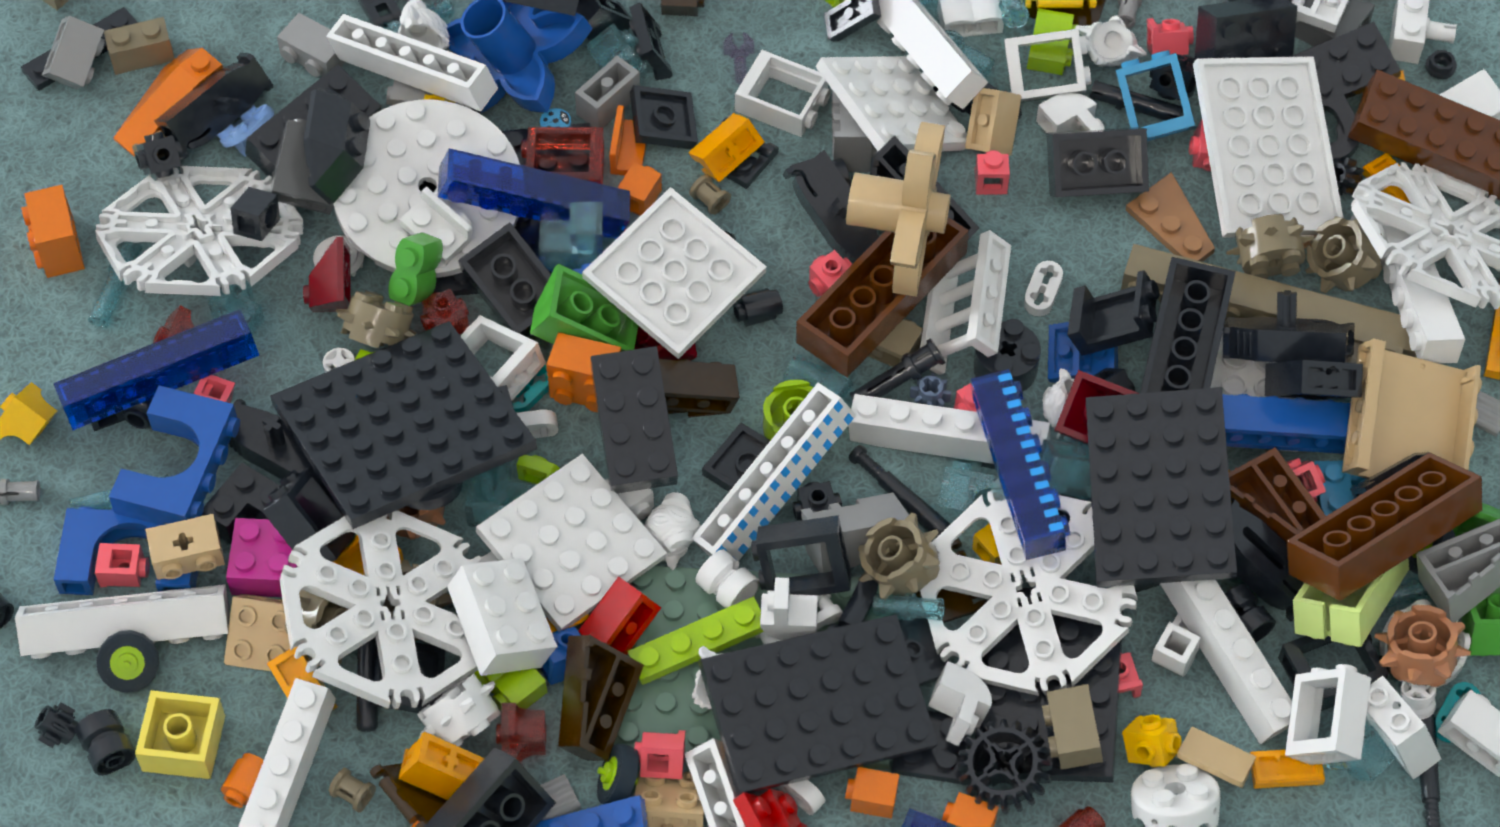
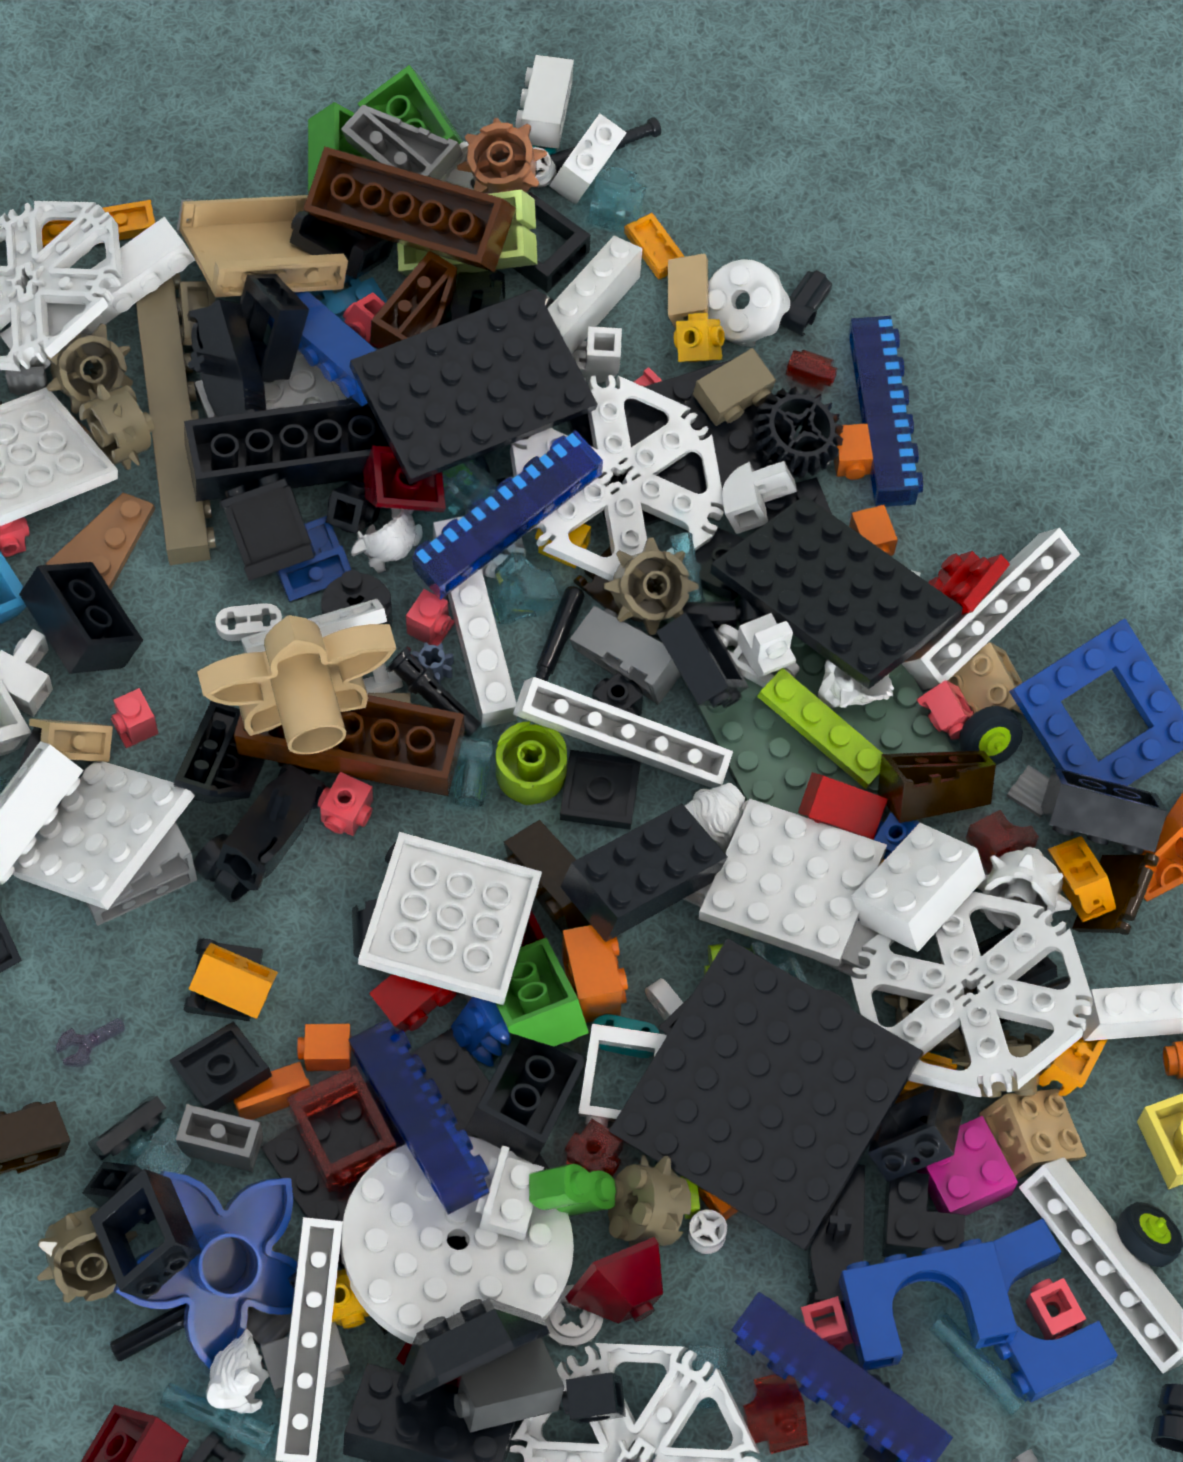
camera: 120 degrees left, 5 degrees up
(169, 546) = (1023, 1251): tan brick -> none
(351, 789) = (1139, 960): dark tan bush -> none
(555, 118) = (291, 1165): dark azure tile -> none
(575, 240) = (441, 1044): clear light blue brick -> none
(710, 194) = (295, 976): dark tan bush -> none
(724, 577) = (752, 727): white wheel -> none
(791, 73) = (125, 1000): white window -> none
(1348, 716) = (645, 201): white window -> none

